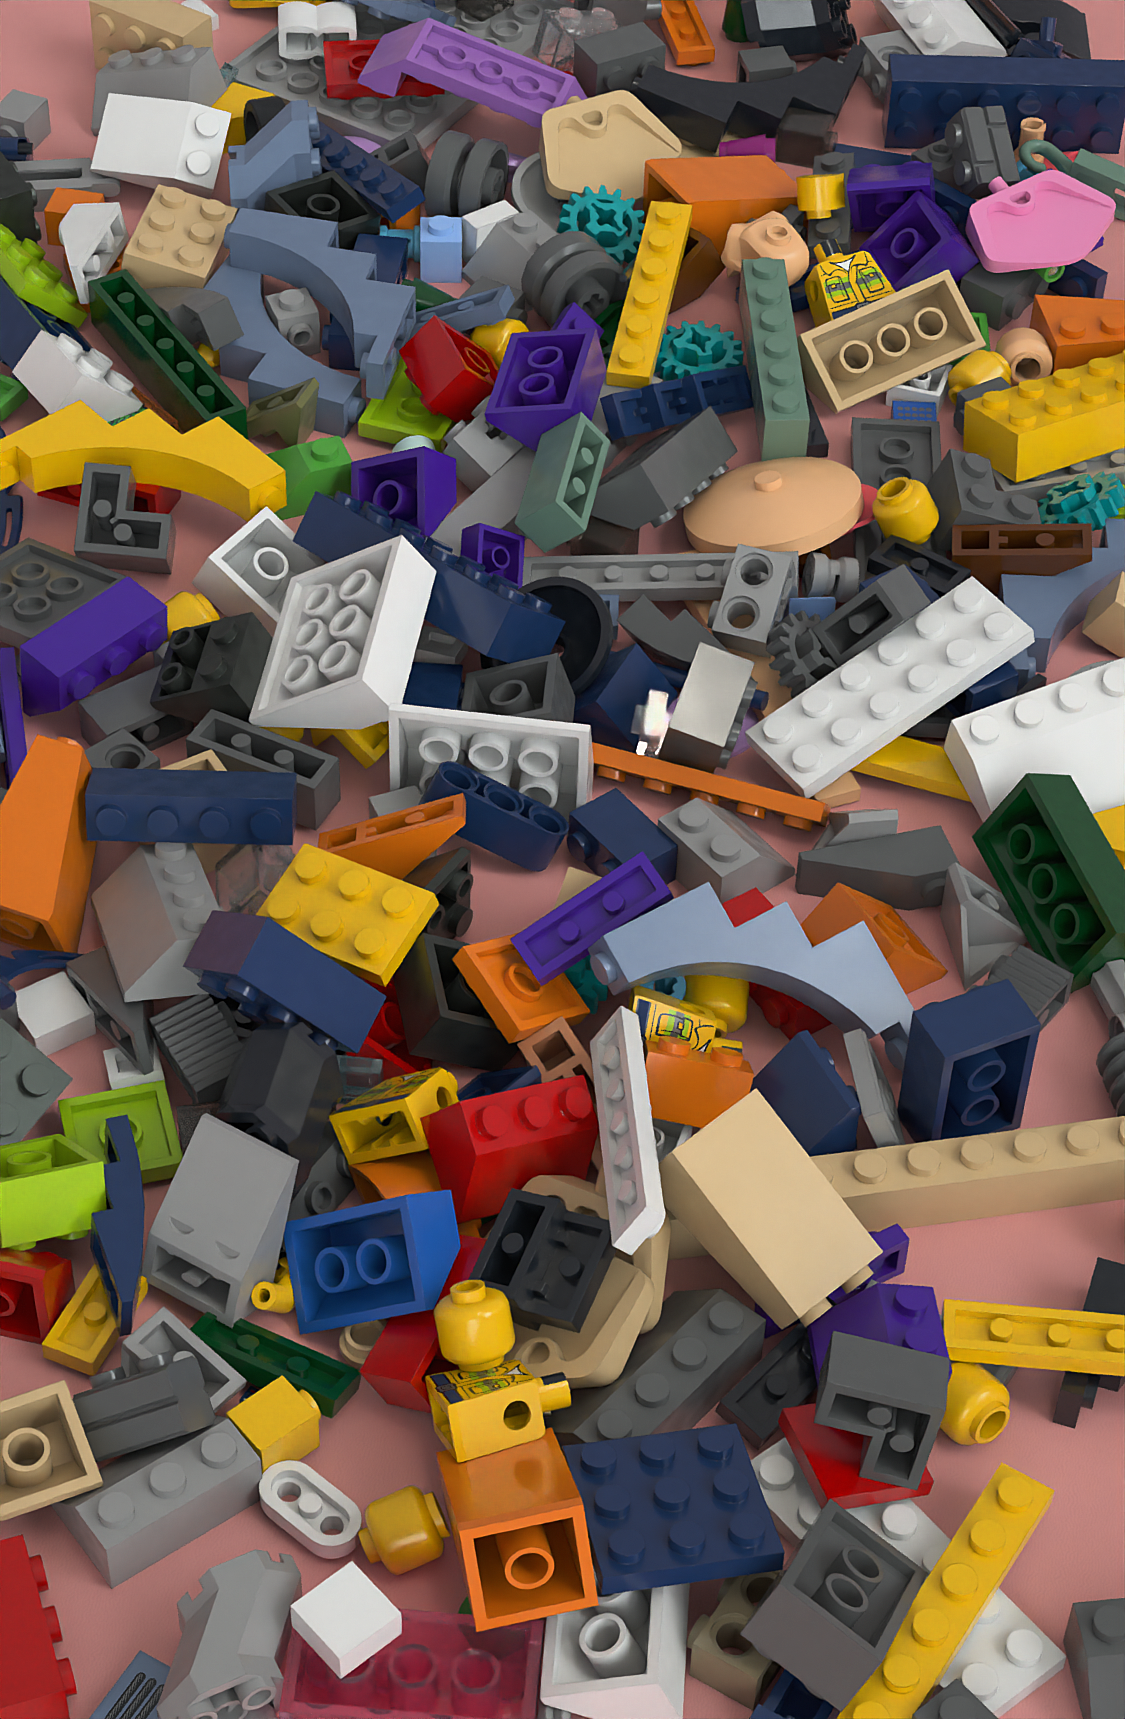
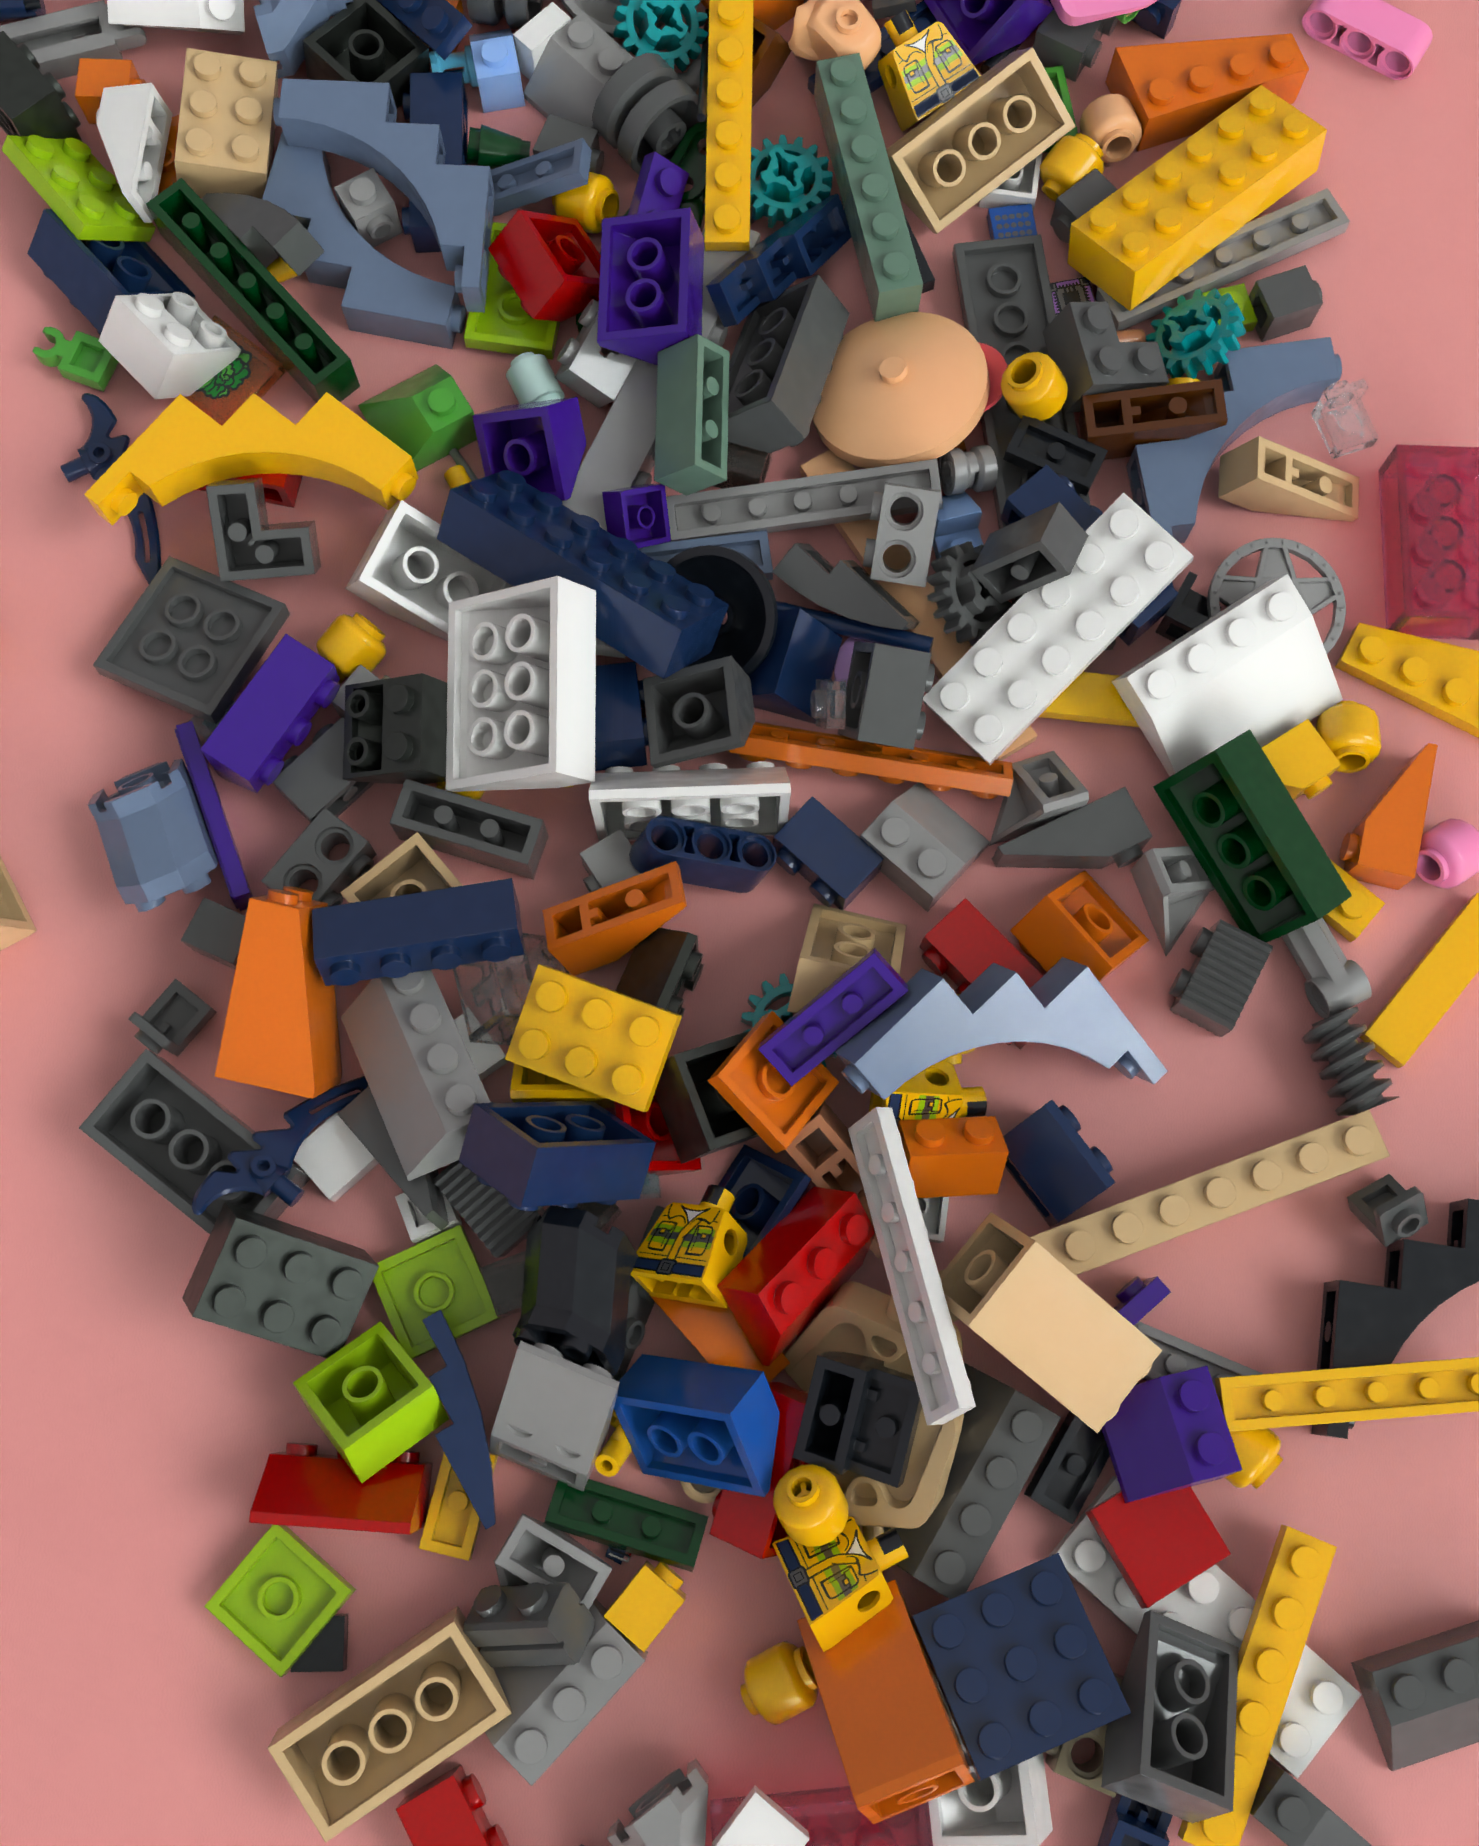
camera: 10 degrees left, 30 degrees up
(287, 412) = (385, 340): olive slope -> none
(316, 1510) = (690, 1674): white plate -> none
(873, 1091) = (1118, 1139): light grey tile -> none
(887, 1396) = (1192, 1528): dark grey brick -> none
(968, 1064) = (1200, 1098): dark blue brick -> none

